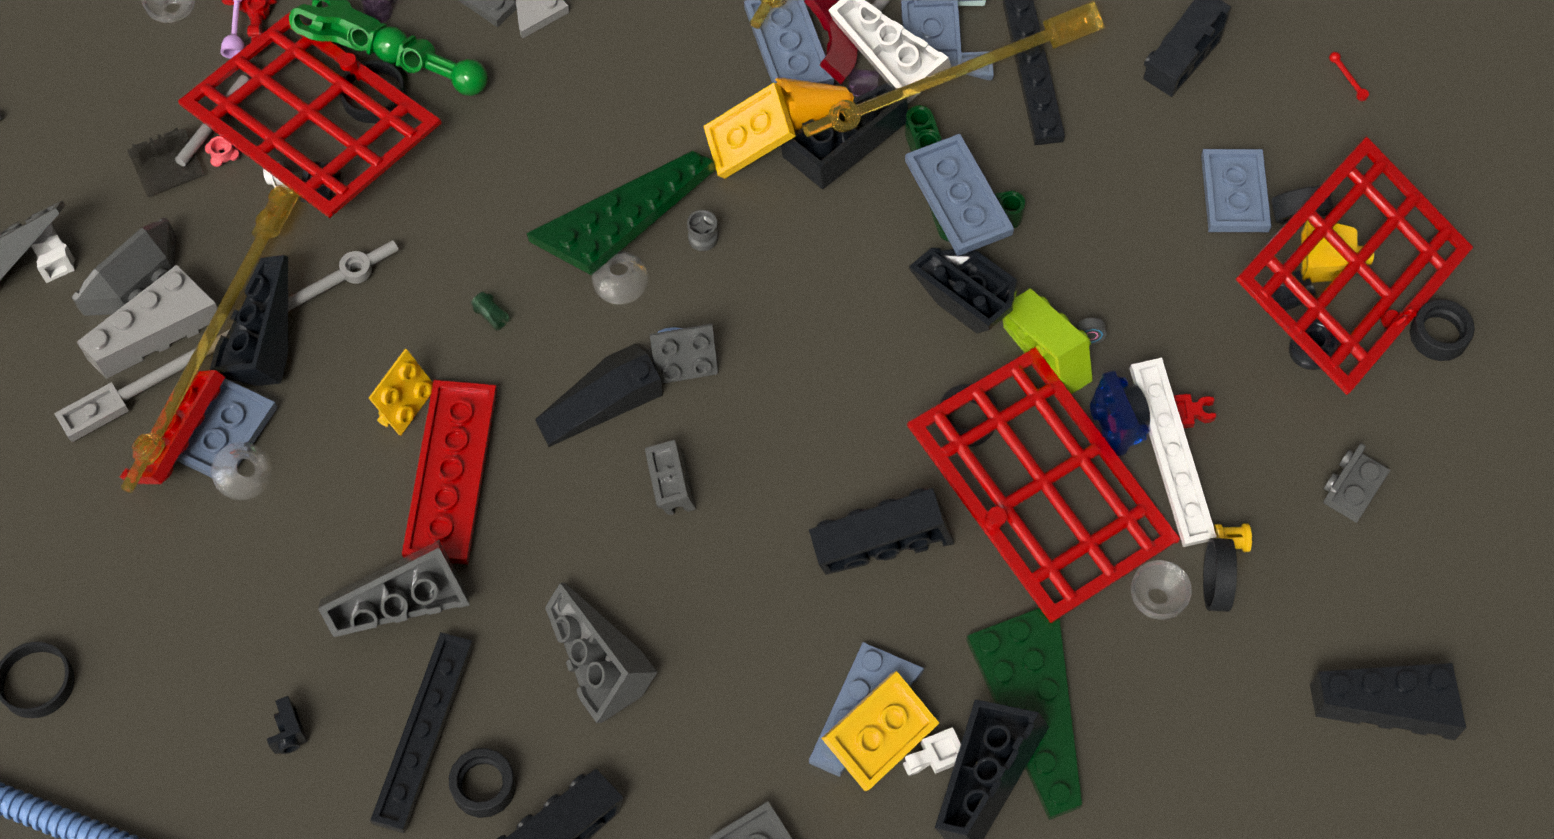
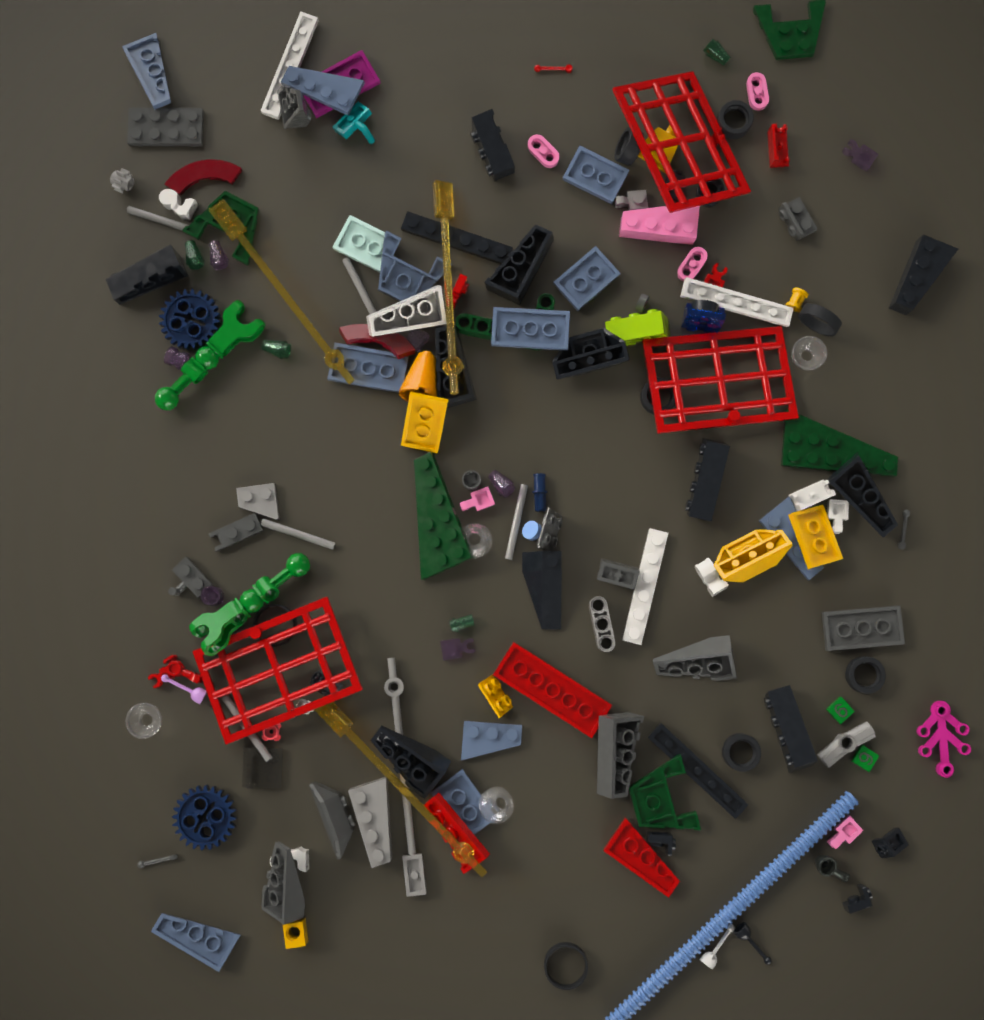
camera: 60 degrees left, 20 degrees up
(66, 123) = (190, 807): none -> dark blue gear
(246, 711) = (636, 854): none -> red wing
(339, 421) = (488, 737): none -> sand blue wing
(343, 688) = (653, 800): none -> dark green wing
(449, 319) = (453, 649): none -> clear purple plate
(513, 65) = (298, 534): none -> light grey bar
(587, 477) = (608, 631): none -> light grey beam
(672, 529) = (645, 586): none -> white plate
(675, 316) = (516, 522): none -> light grey bar
(679, 254) = (480, 500): none -> bright pink plate
(718, 272) = (502, 484): none -> clear purple cone
(735, 611) = (710, 577): none -> white leg
(738, 323) = (539, 492): none -> dark blue axle
(795, 649) = (751, 555): none -> yellow wedge
(942, 701) = (811, 495): none -> white hinge
(963, 97) = (460, 287): none -> red plate
(1045, 153) = (517, 272): none -> black wedge
(1080, 245) = (586, 278): none -> sand blue plate
(1190, 370) = (691, 265): none -> bright pink plate
(1223, 114) = (544, 151): none -> bright pink plate
(1223, 307) = (660, 225): none -> bright pink wedge
(1230, 257) = (634, 200): none -> light grey plate
(1445, 406) = (778, 146): none -> red hinge
(1503, 343) = (757, 92): none -> bright pink plate
(1513, 530) = (862, 156): none -> clear purple plate
(1521, 260) = (716, 52): none -> clear green cone

